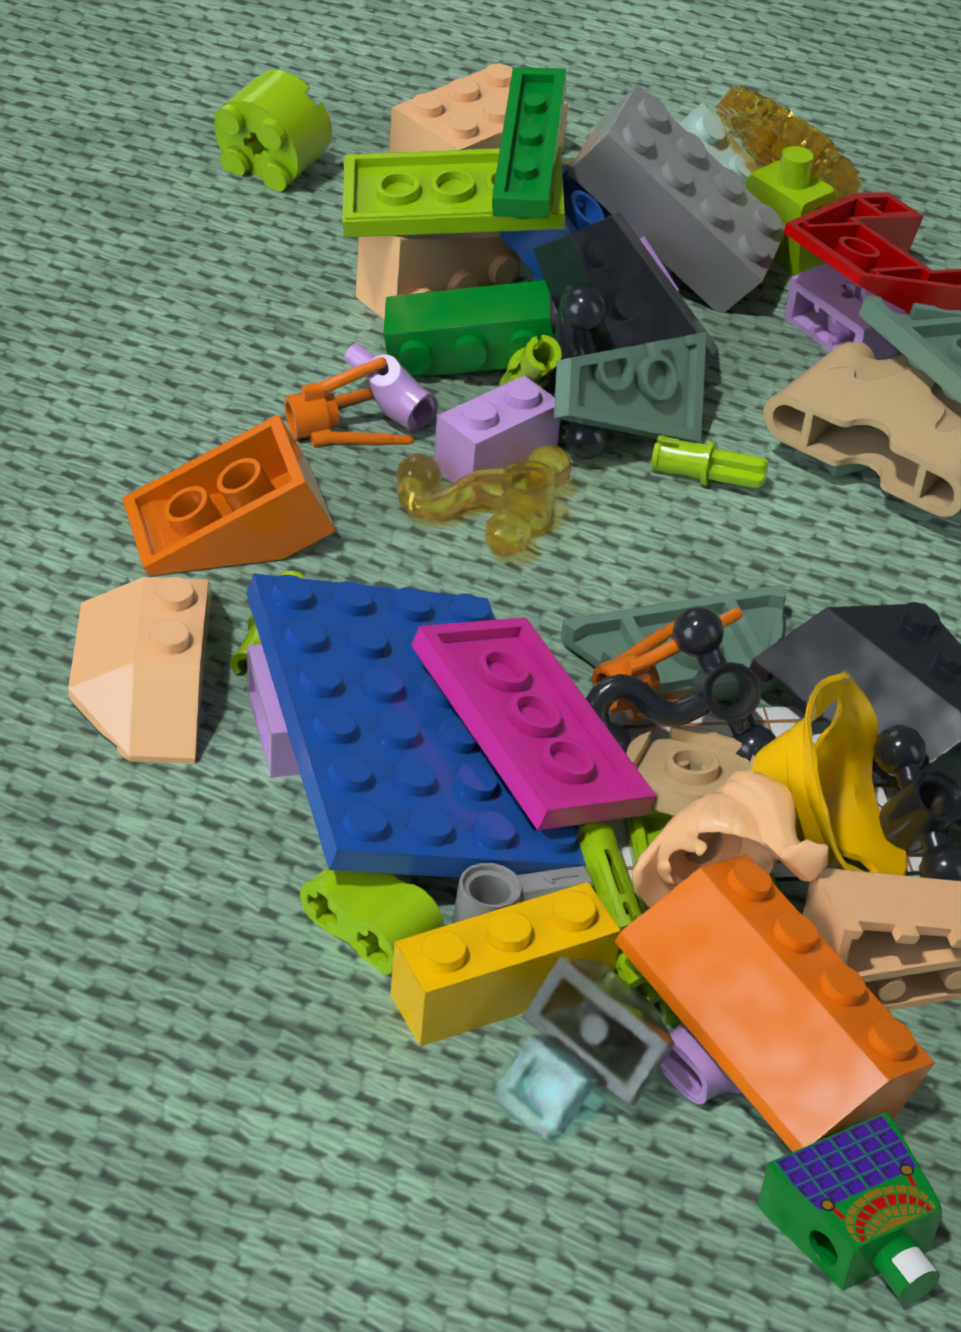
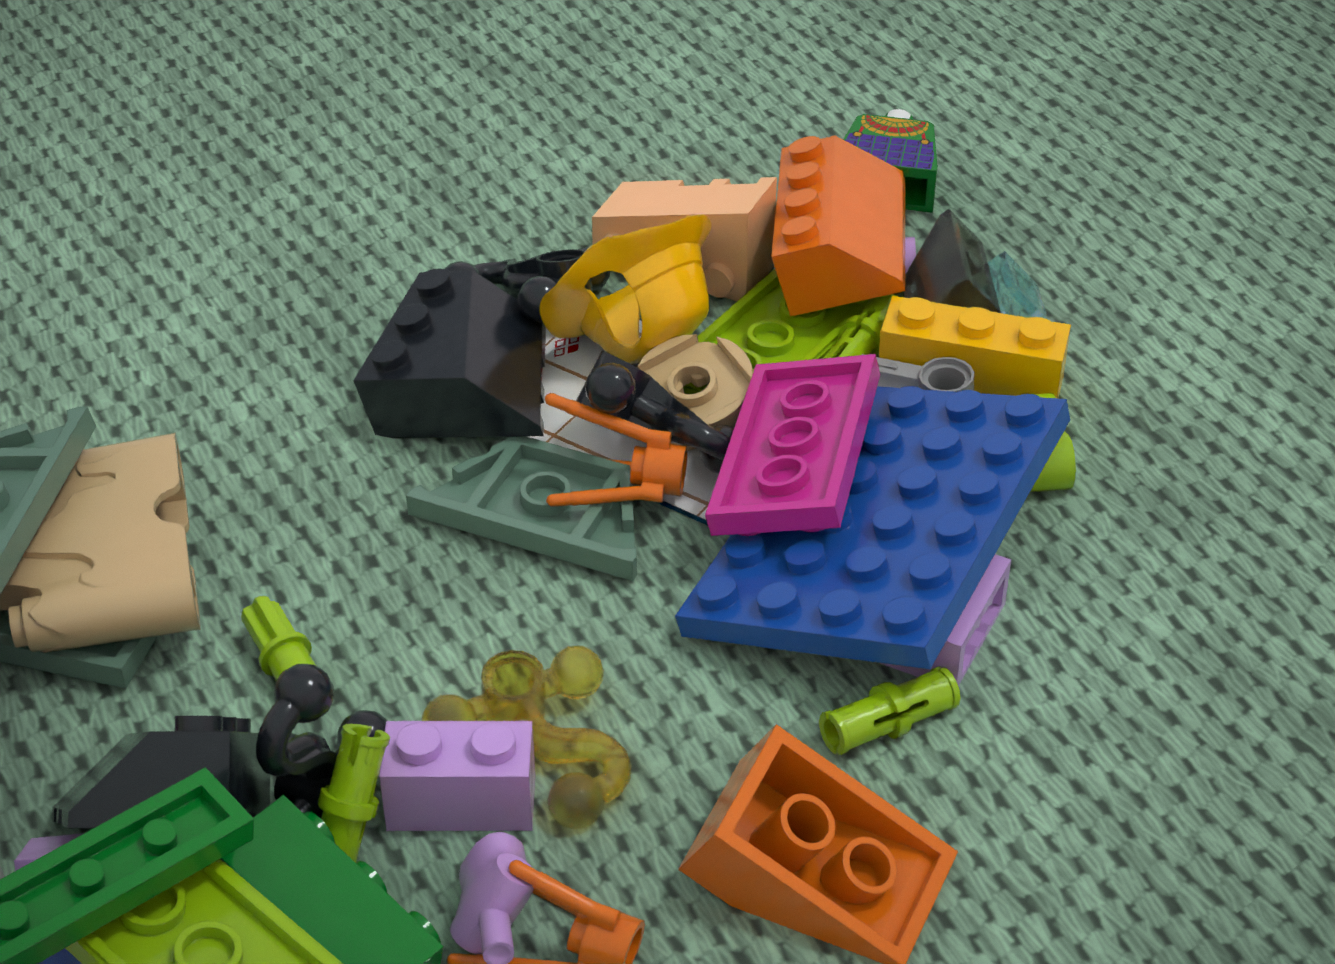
camera: 135 degrees left, 0 degrees up
(144, 666) = (1026, 744): light nougat wedge -> none
(637, 388) = (362, 695): sand green wing -> none
(738, 819) = (768, 277): light nougat piece -> none

